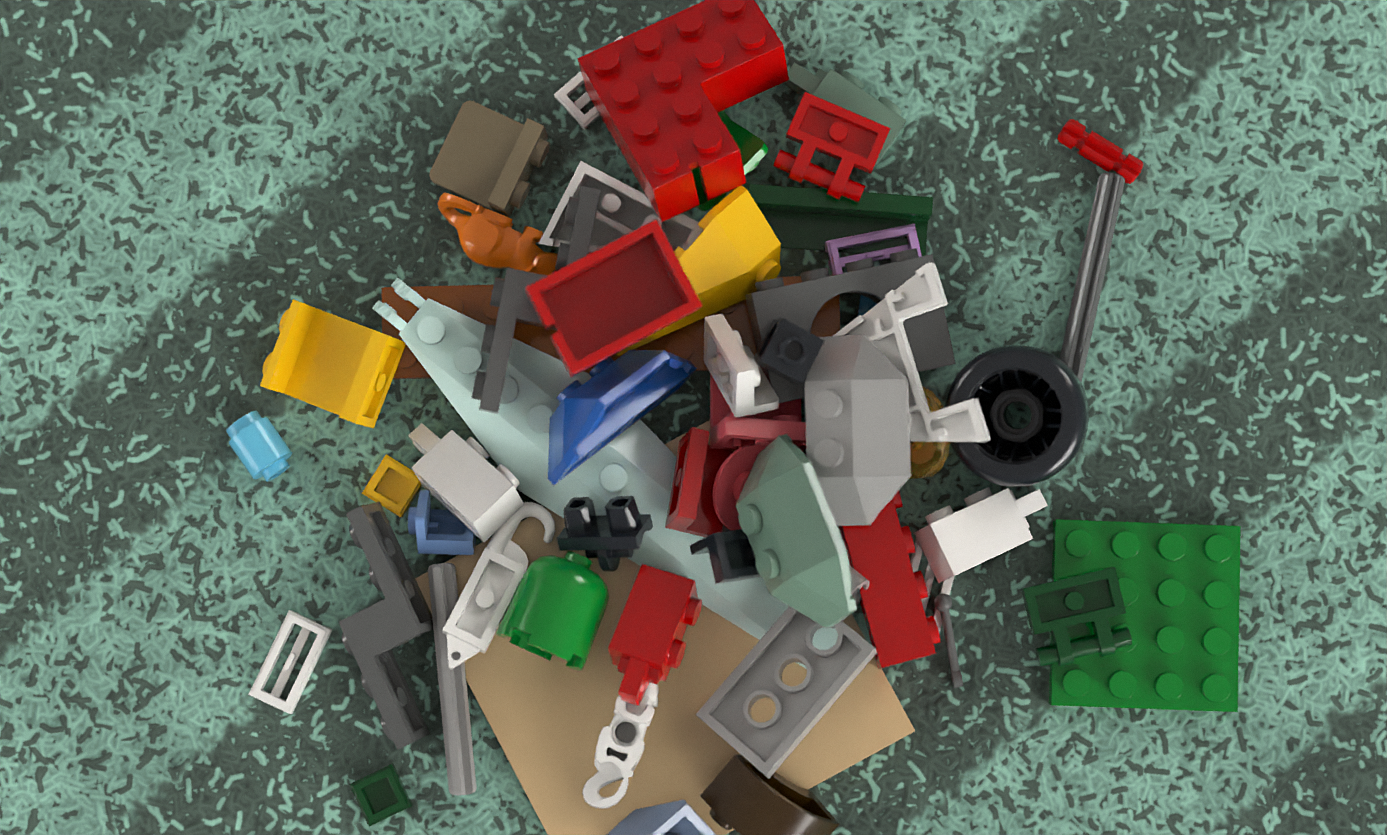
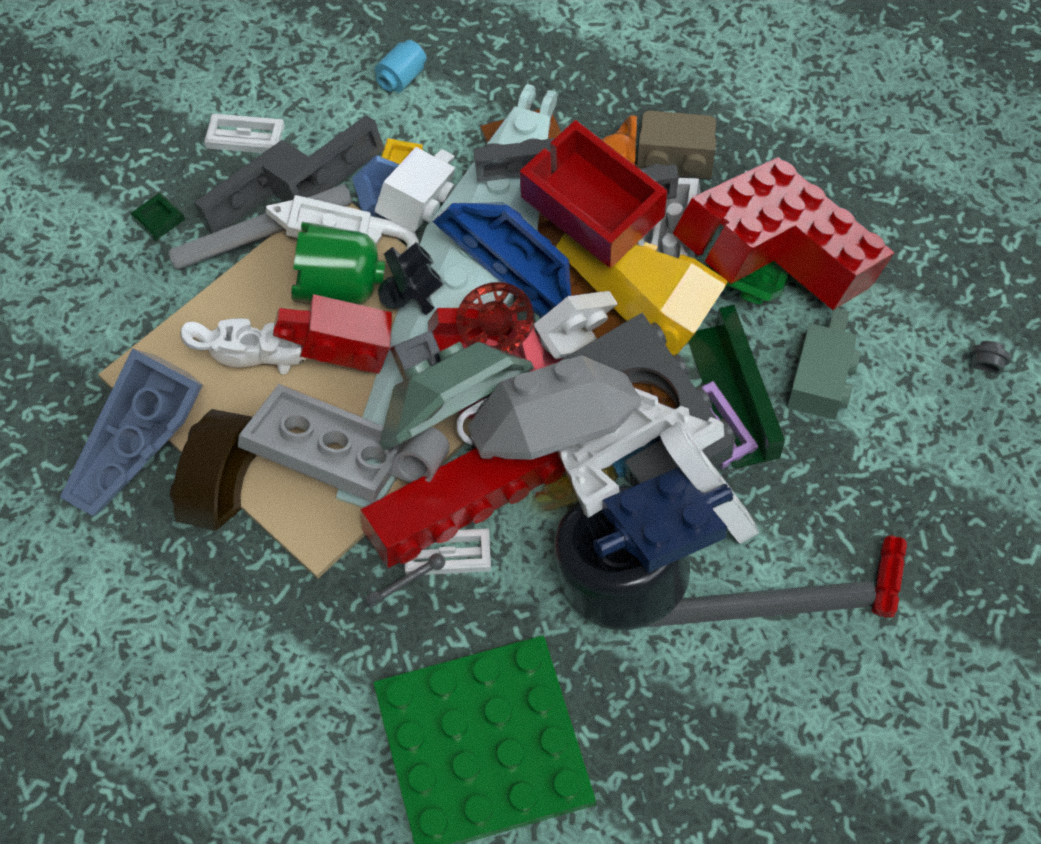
camera: 70 degrees right, 25 degrees down
(332, 363) = (478, 85): yellow panel -> none
(714, 457) = (495, 316): none -> clear red wheel
(788, 350) = (604, 338): black brick -> none
(835, 133) = (803, 346): red plate -> none
(977, 299) = (705, 478): none -> white beam
(977, 532) = (510, 567): white hinge -> none
(1022, 365) = (663, 519): none -> dark blue plate
(1073, 602) = (472, 659): dark green plate -> none

